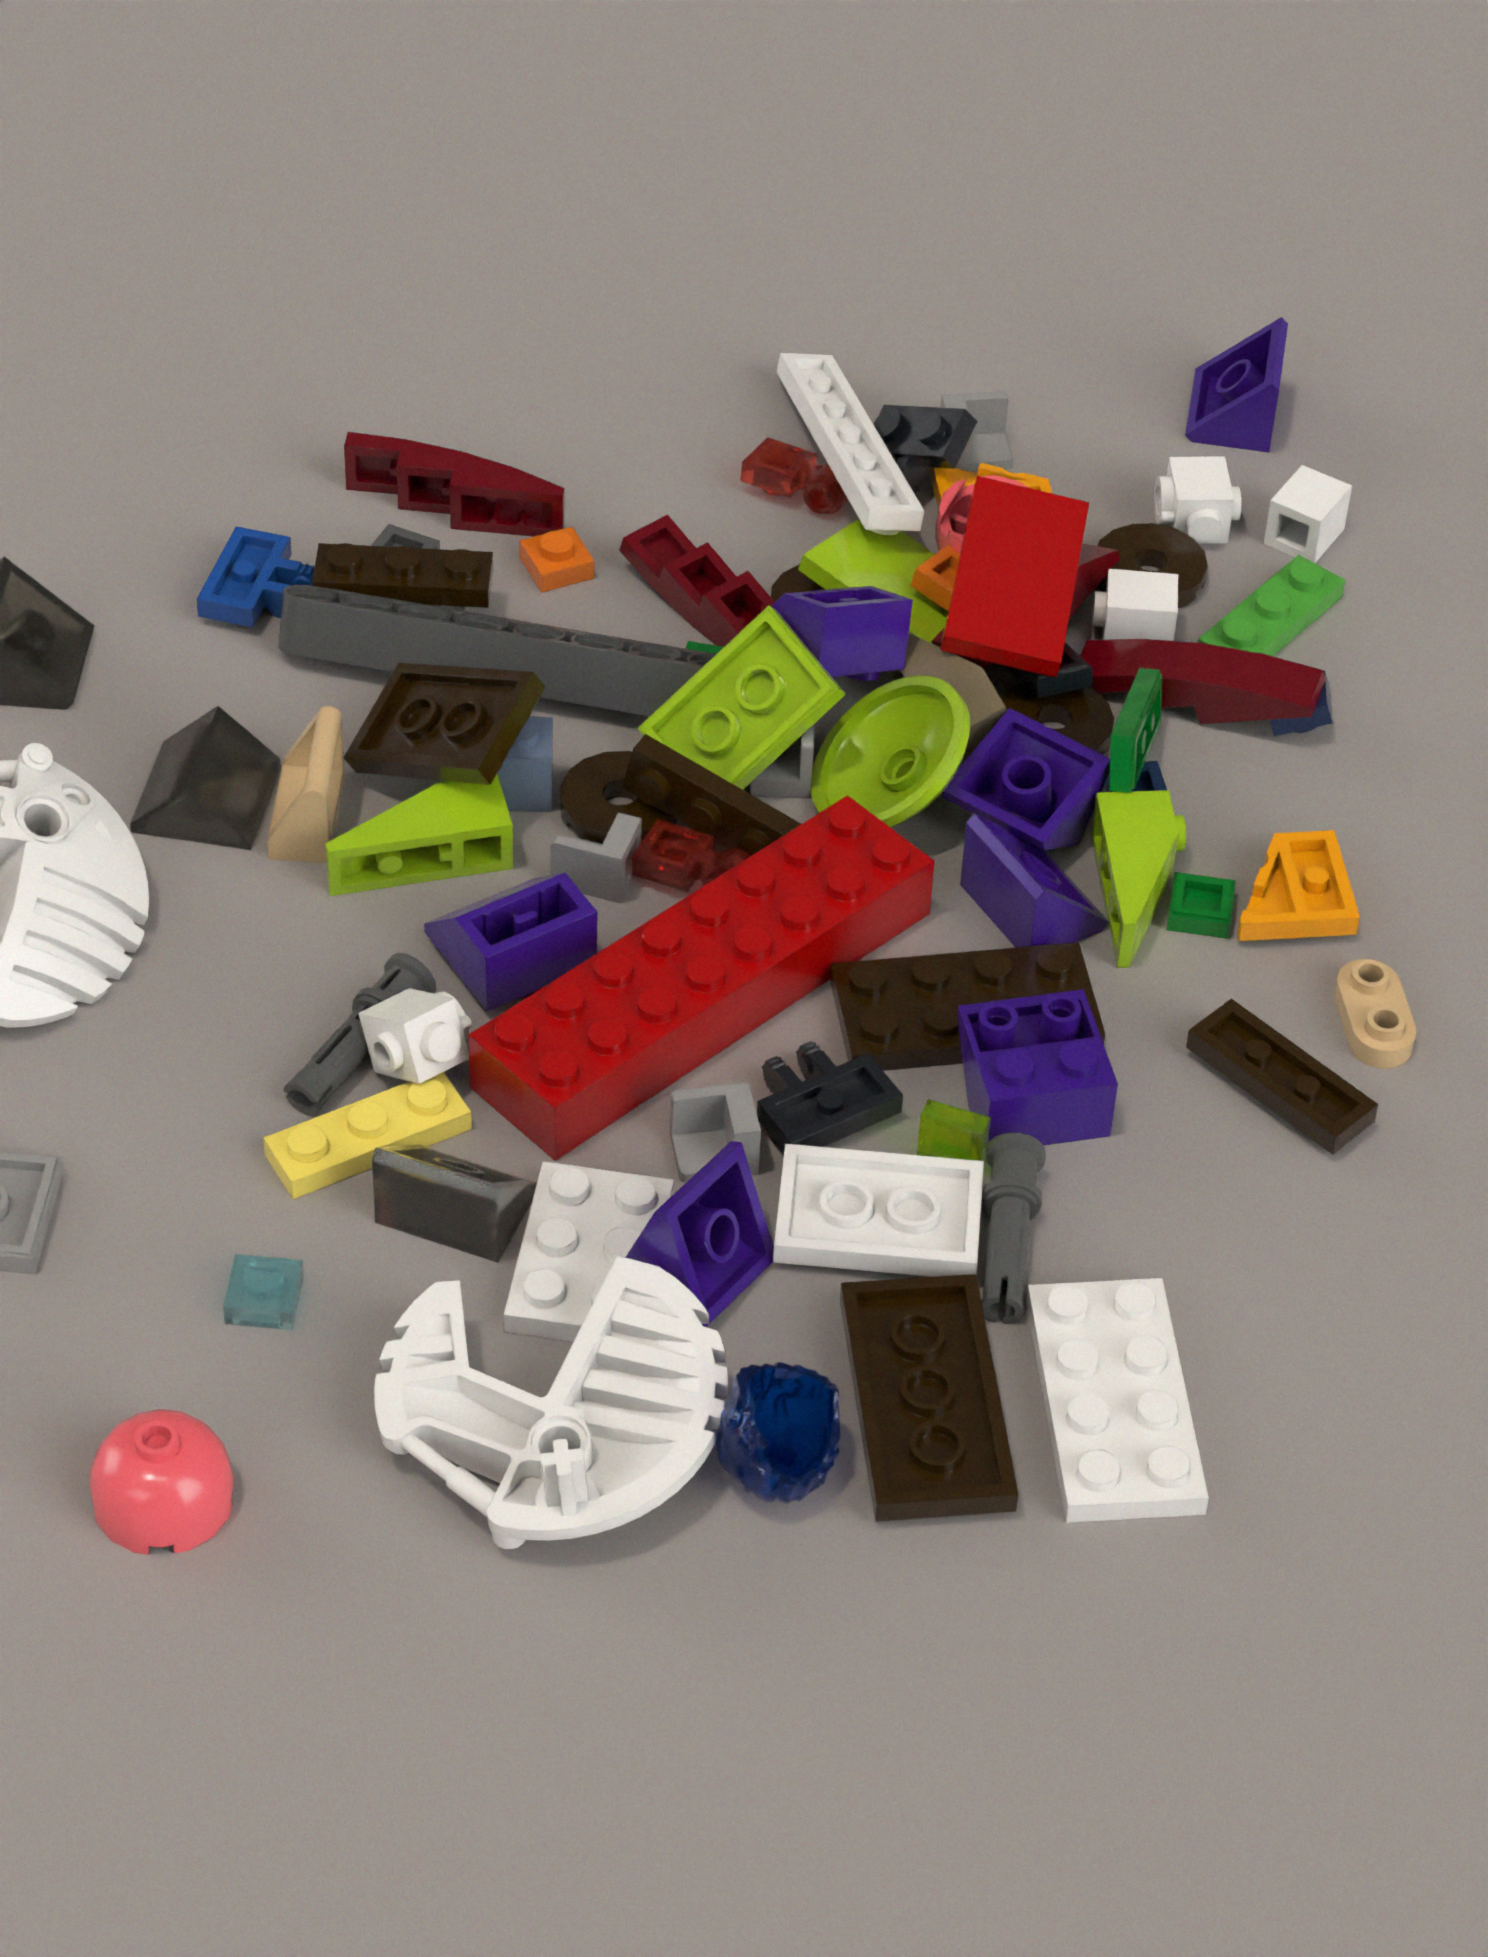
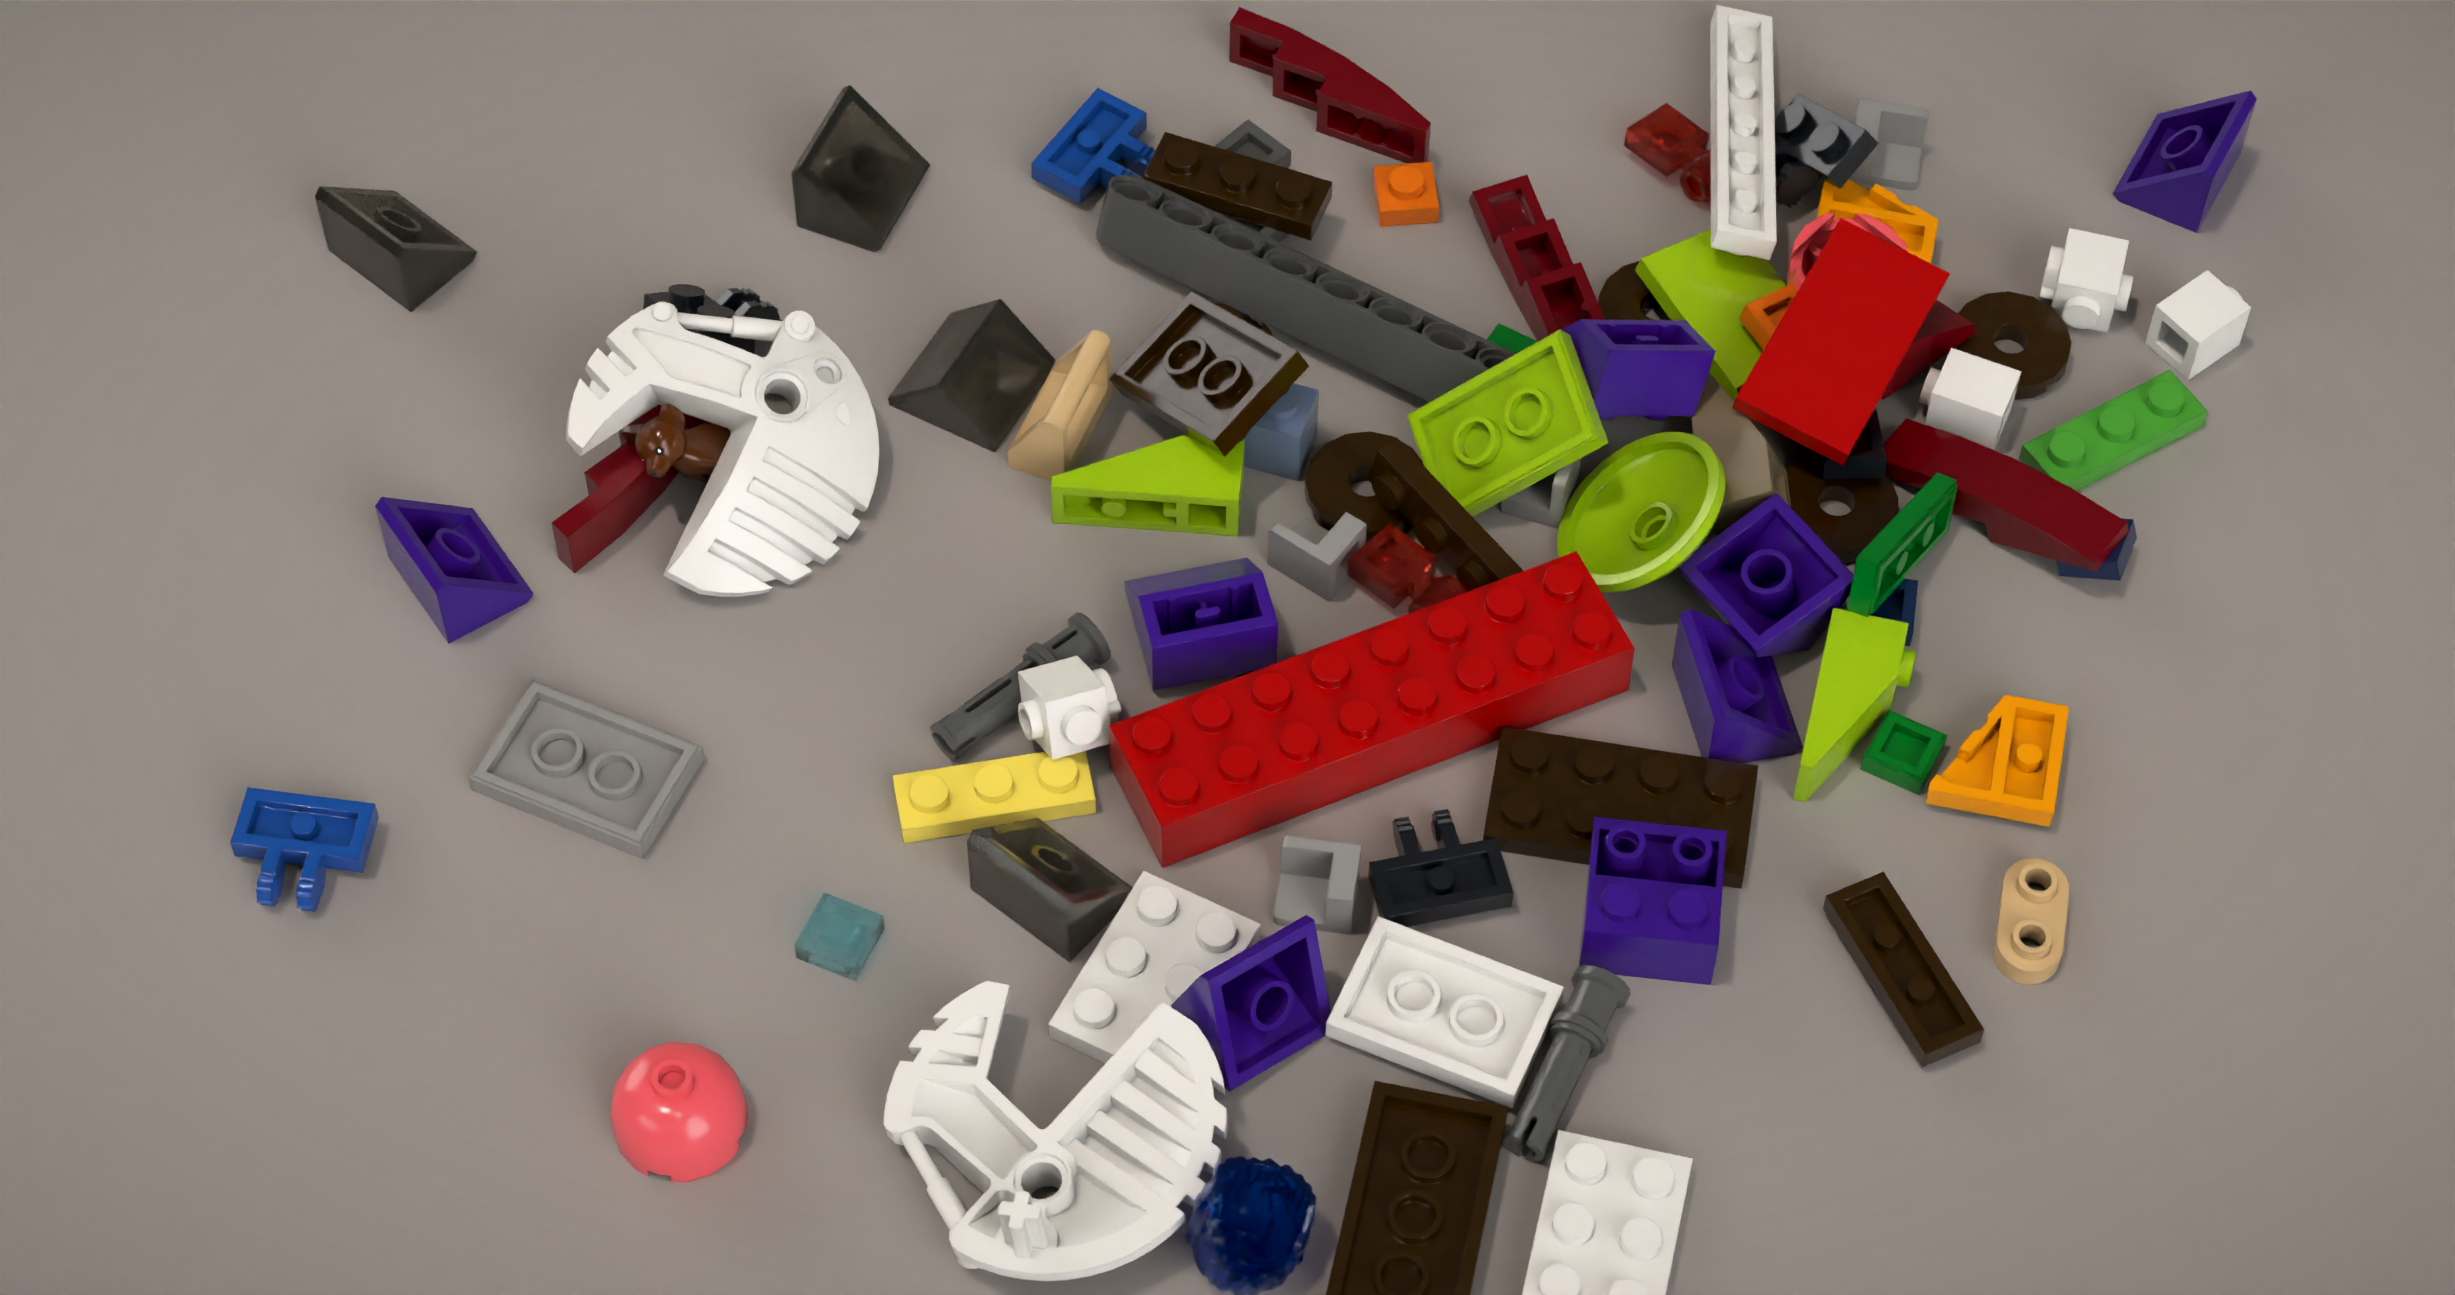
camera: 20 degrees right, 10 degrees up
(952, 1132) = (1545, 950): clear neon green tile -> none

